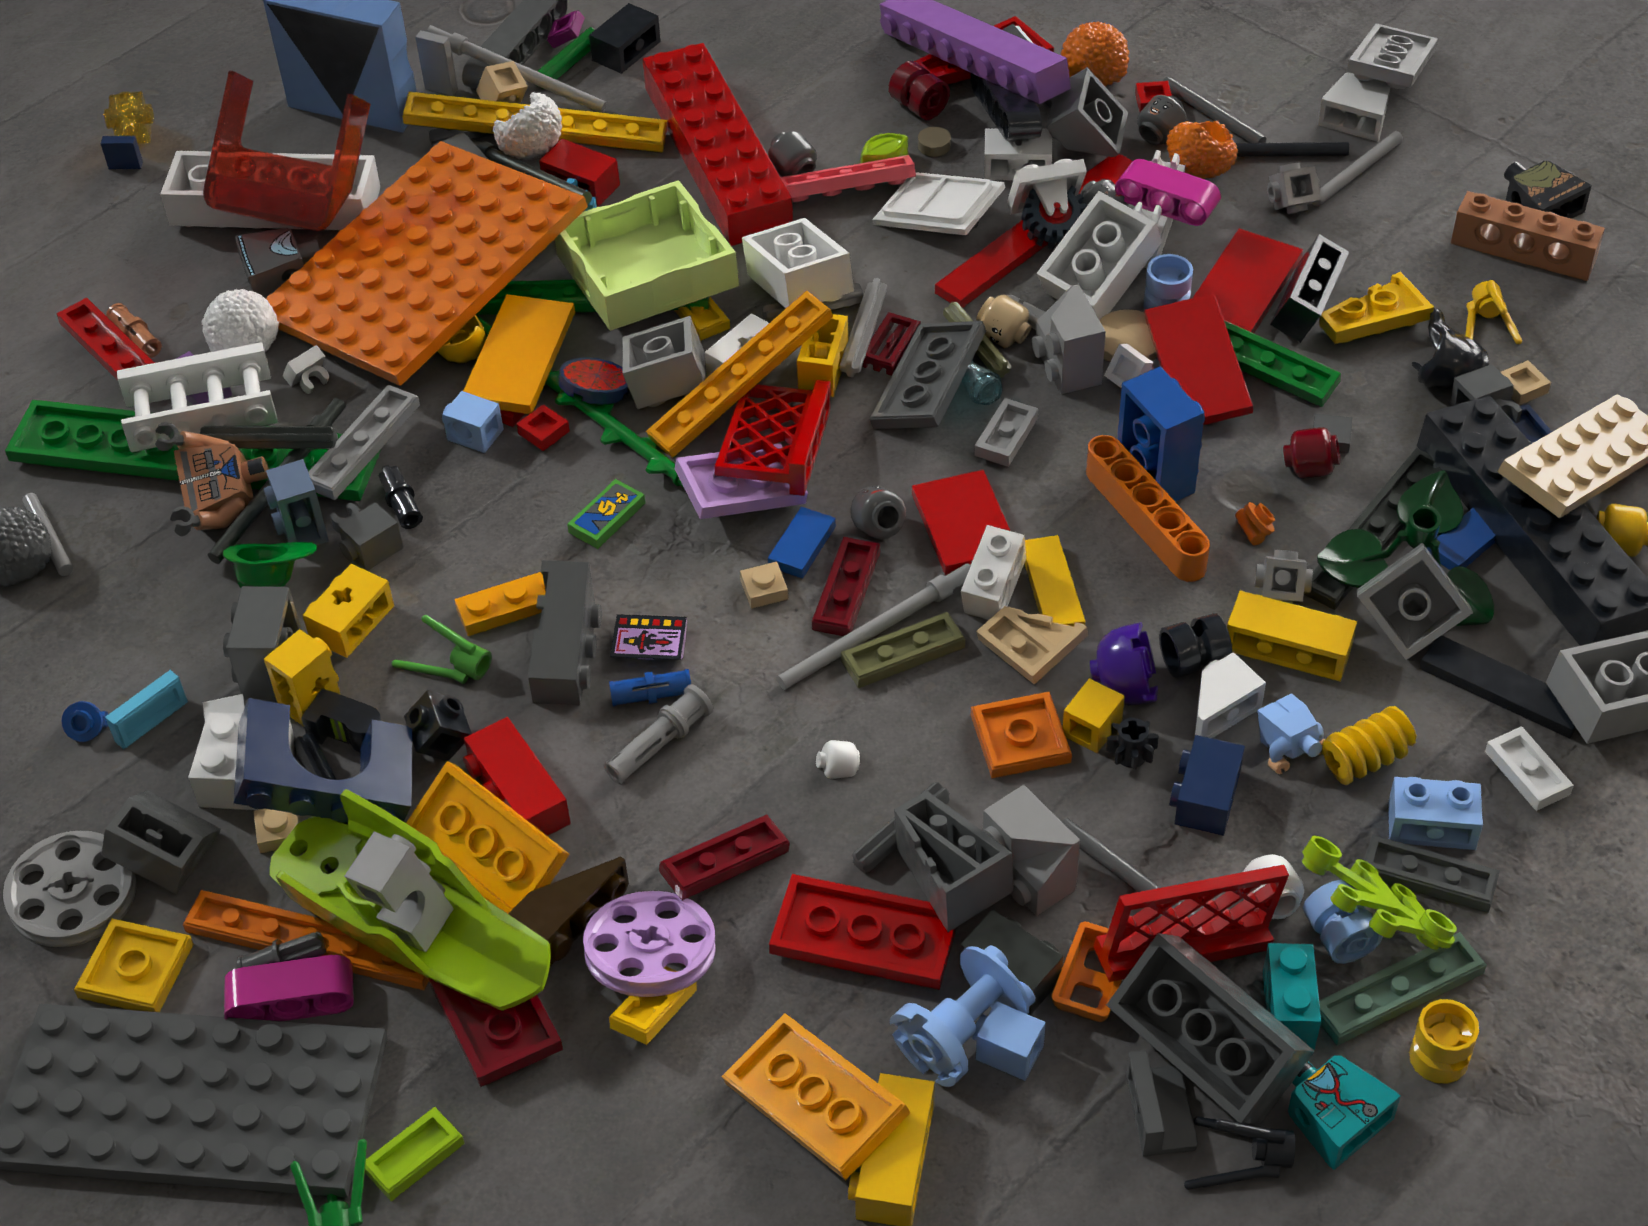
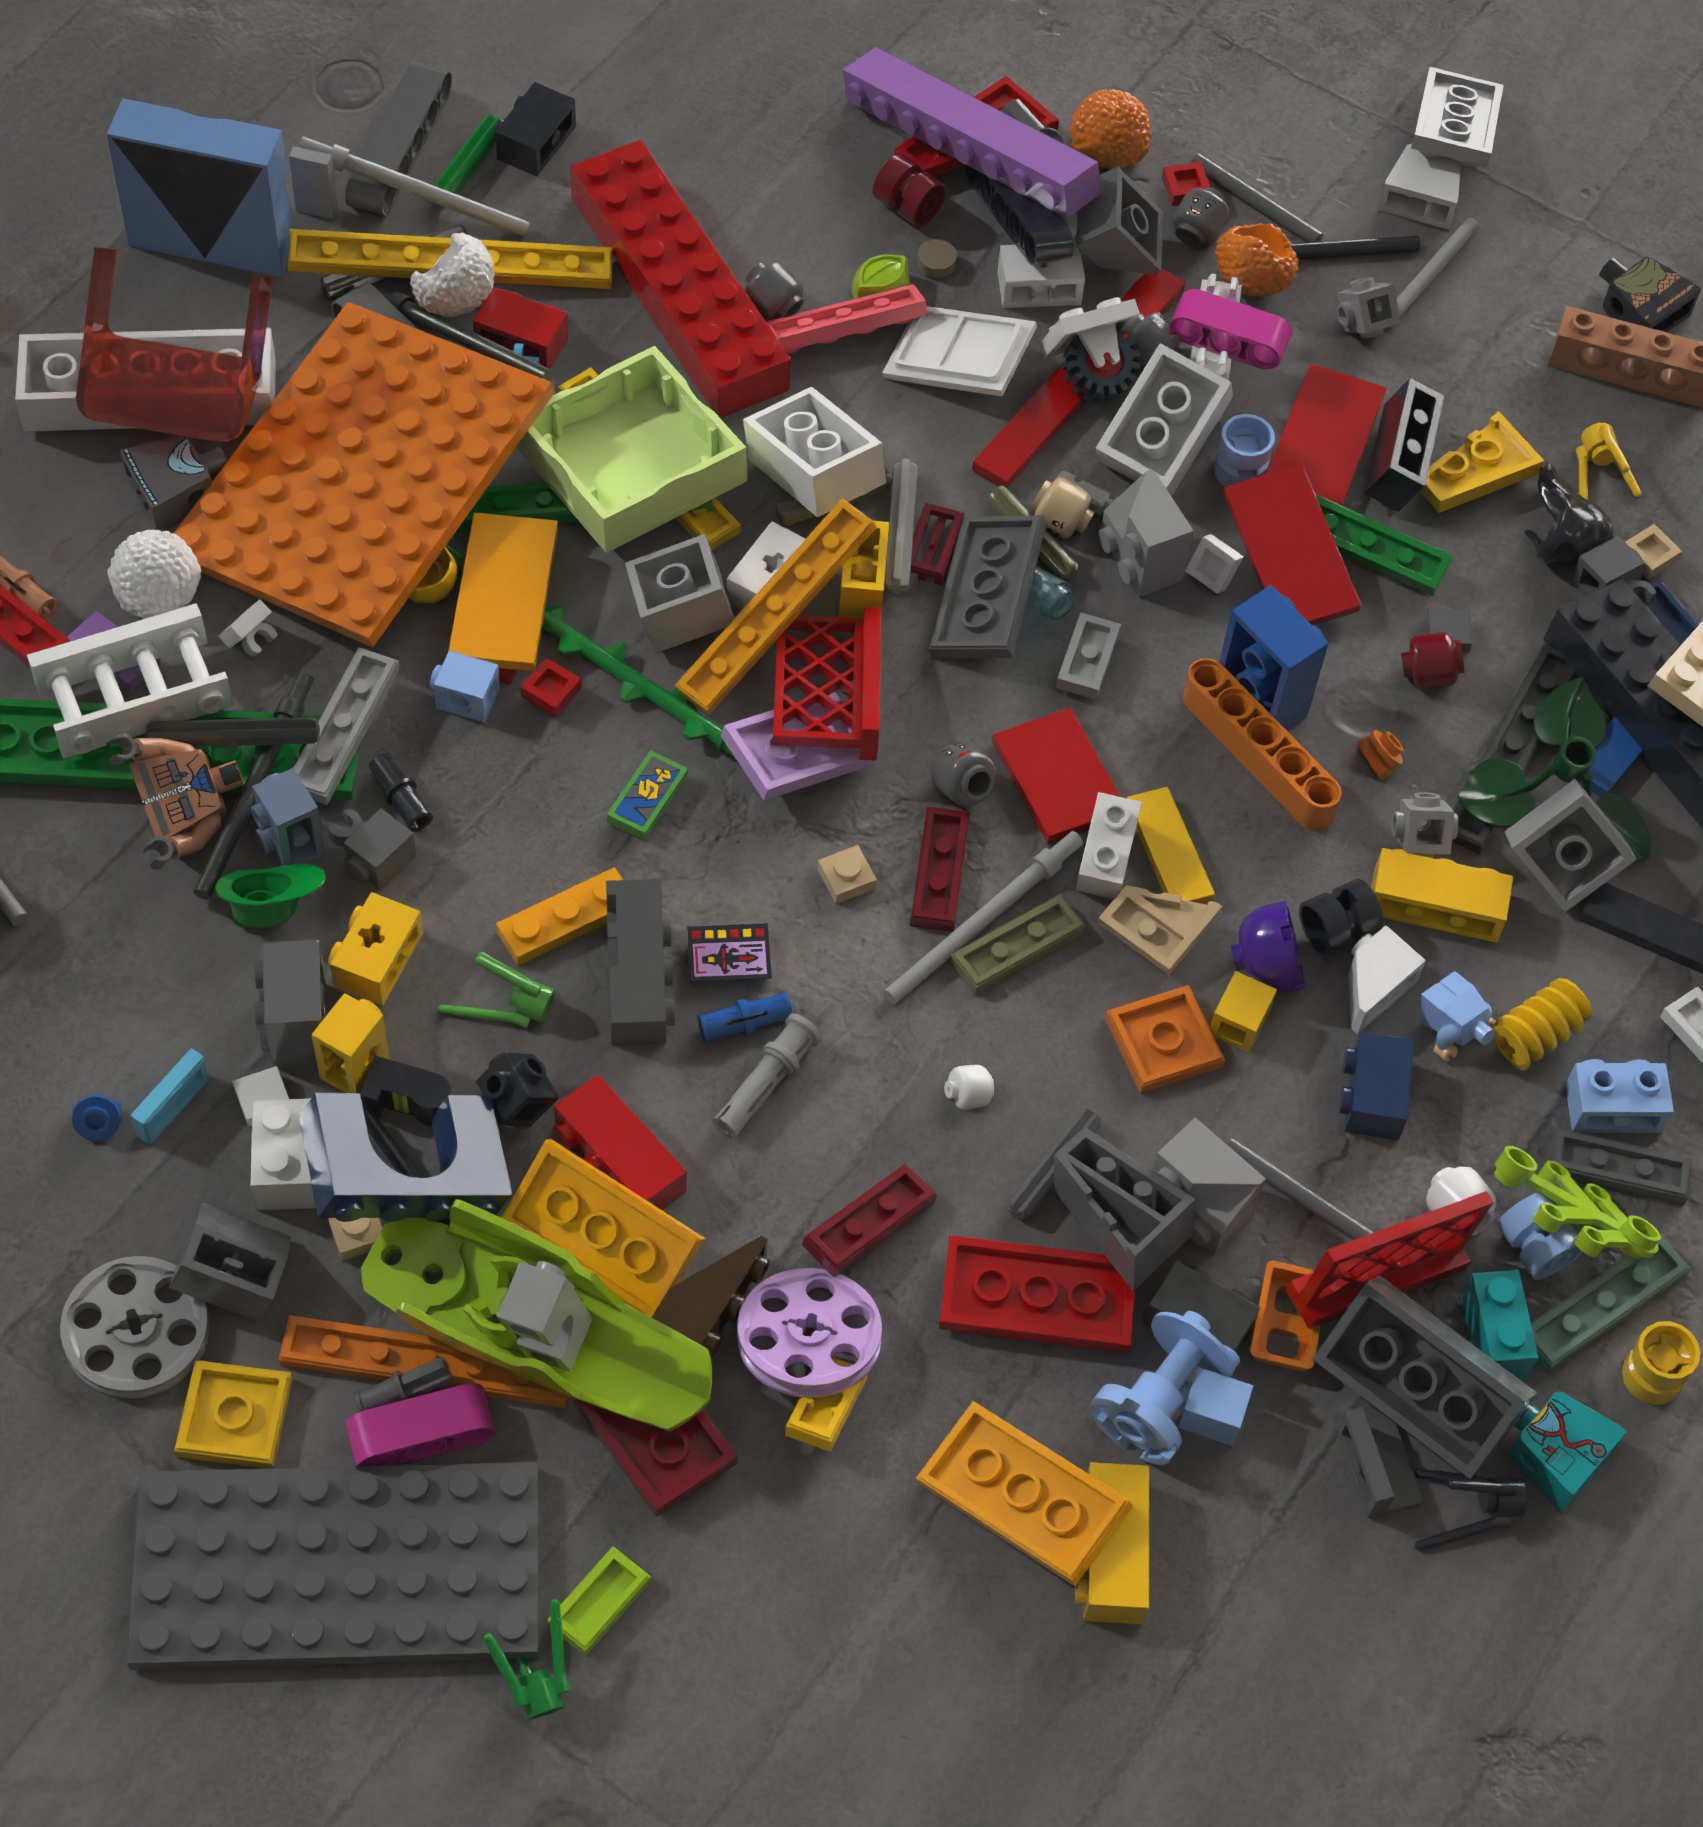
camera: 15 degrees left, 10 degrees up
(502, 83) = (402, 211): tan brick -> none
(565, 28) = (458, 117): magenta tile -> none
(594, 380) = (599, 620): tile -> none
(802, 541) = (880, 815): blue tile -> none
(1127, 328) = (1206, 512): tan dish -> none
(1132, 742) = (1289, 1041): black gear -> none

